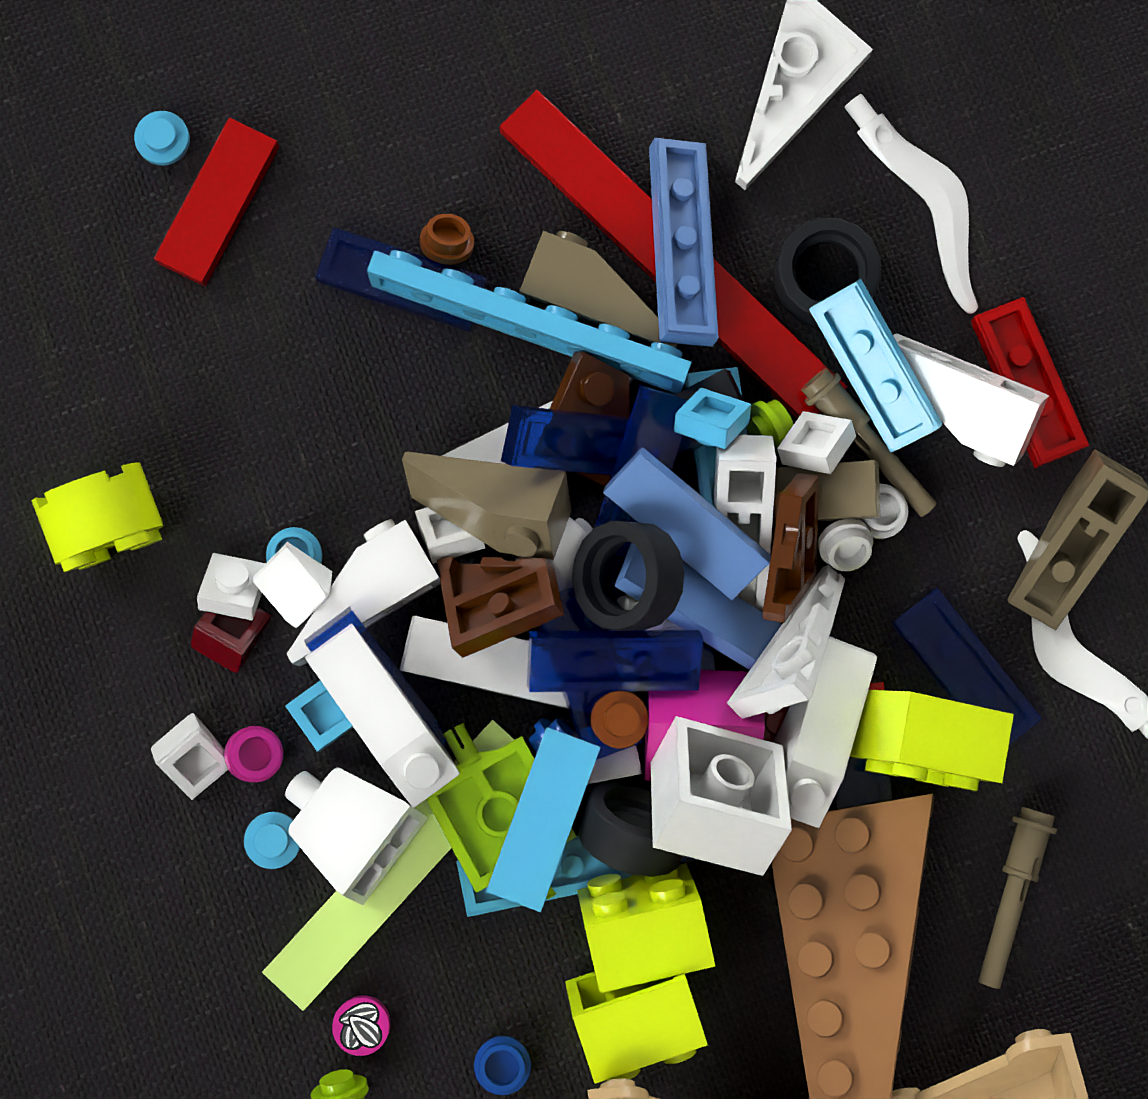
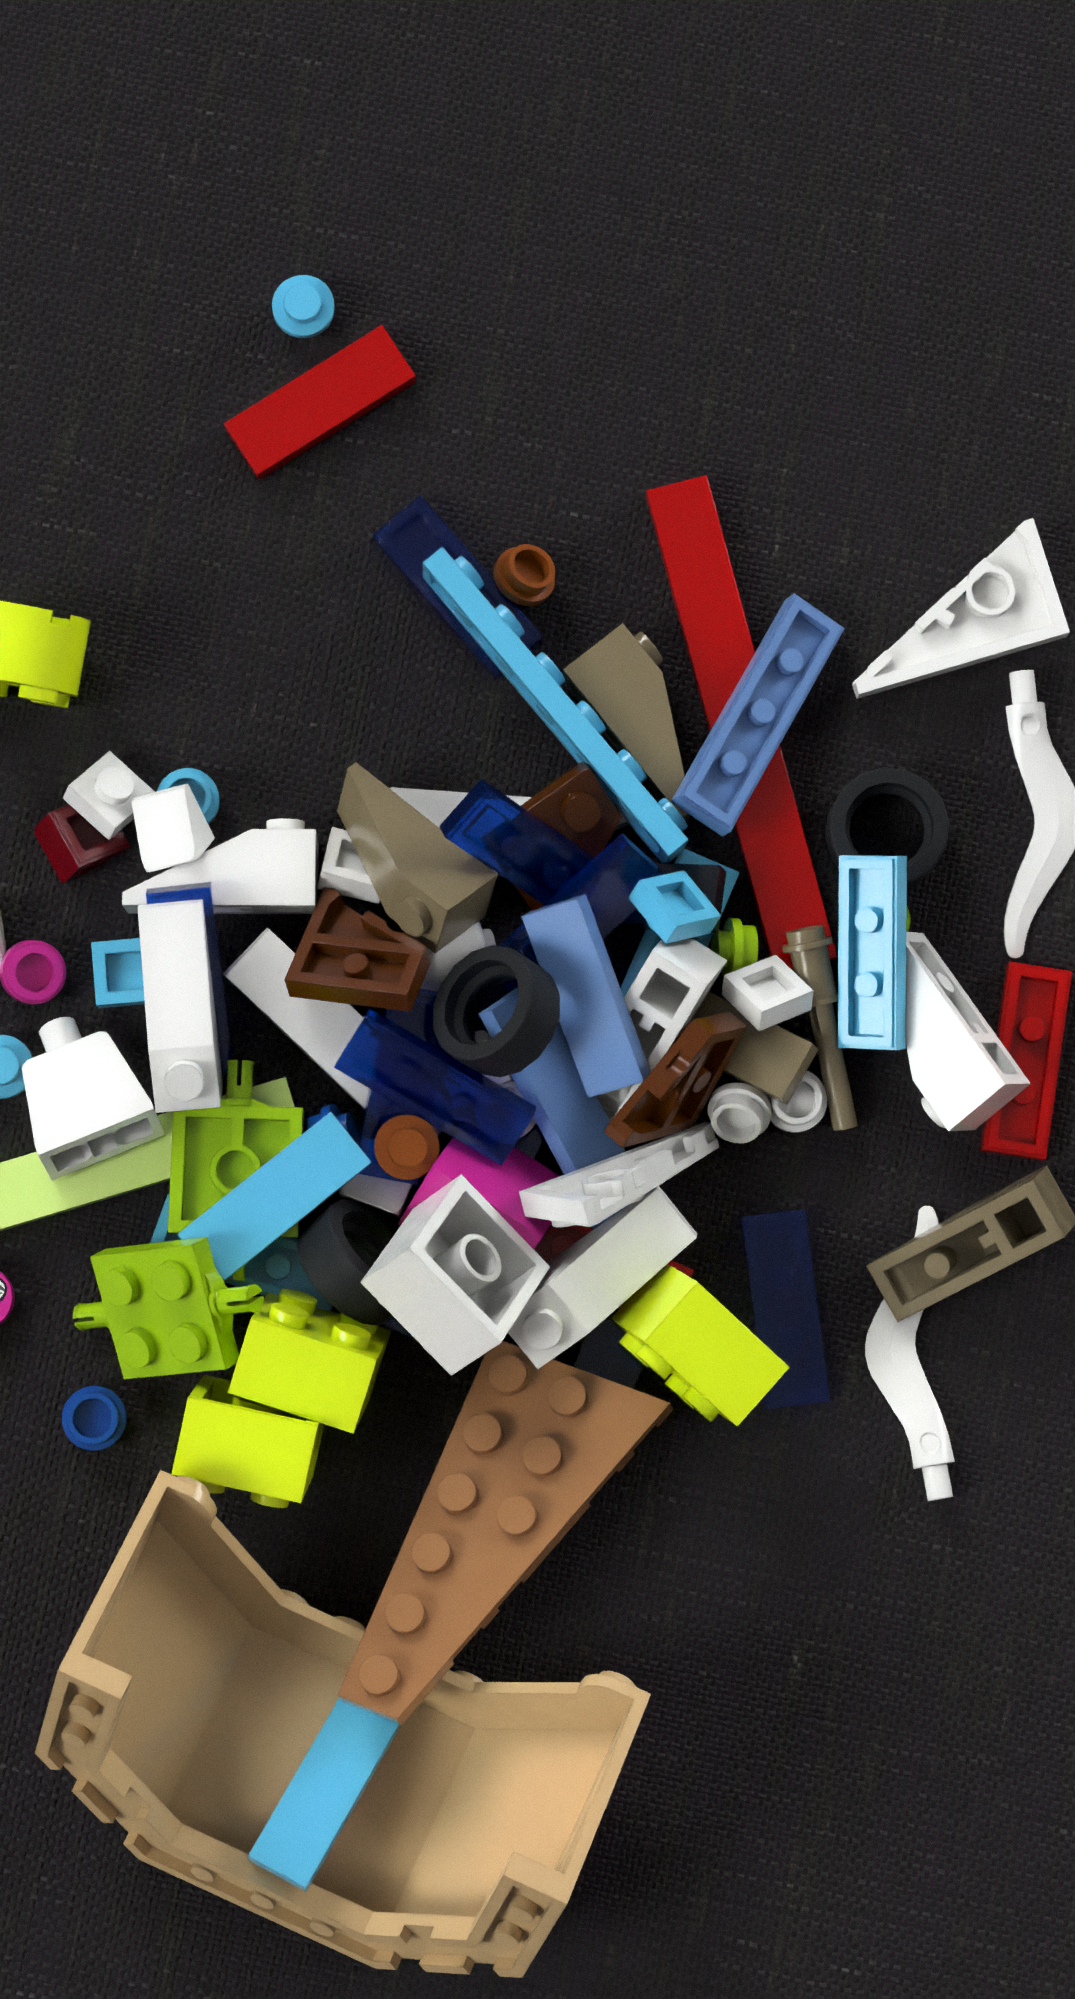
camera: 30 degrees right, 0 degrees up
(511, 952) = (166, 1308): none -> lime plate
(1022, 866) = (720, 1534): dark tan pin -> none

